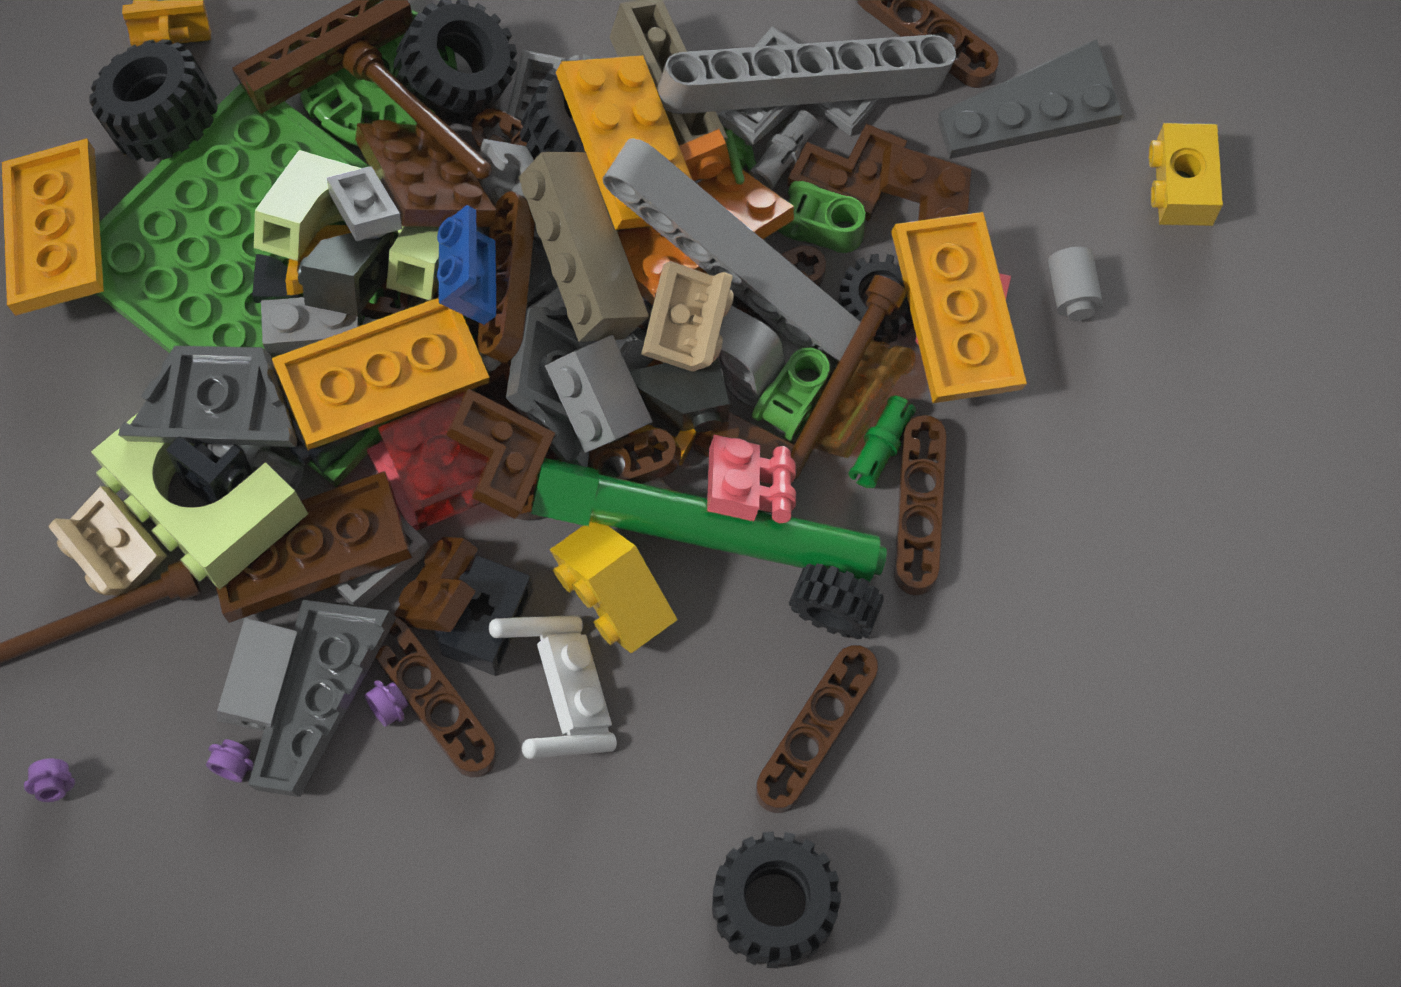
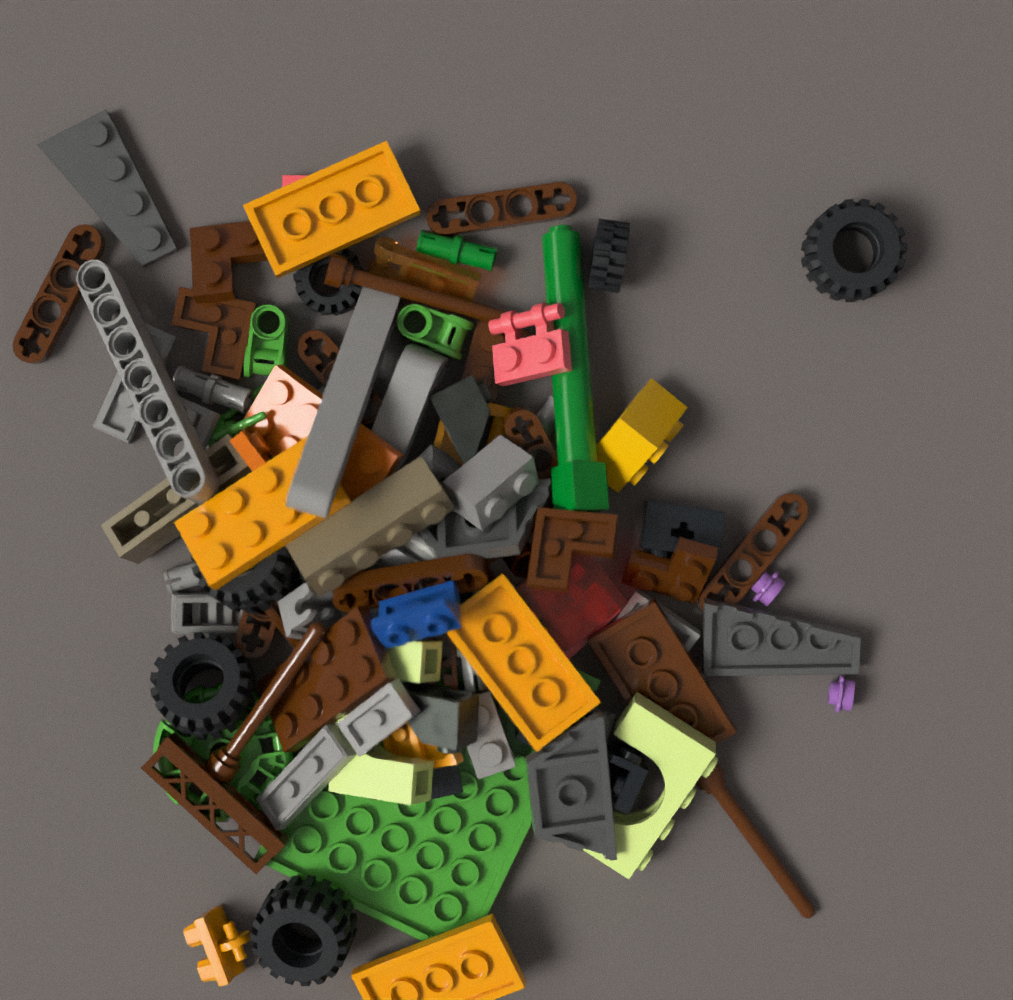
camera: 100 degrees left, 20 degrees up
(49, 780) = (891, 826): medium lavender plate -> none
(108, 544) = (696, 843): tan bracket -> none
(256, 675) = (772, 693): light grey hinge -> none
(321, 132) = (305, 776): none -> light grey tile
(571, 683) = (721, 447): white plate -> none
(688, 317) = (413, 423): tan bracket -> none
(813, 726) = (704, 257): reddish brown beam -> none
(1075, 282) = (278, 119): light grey brick -> none
(1193, 151) = (129, 37): yellow brick -> none

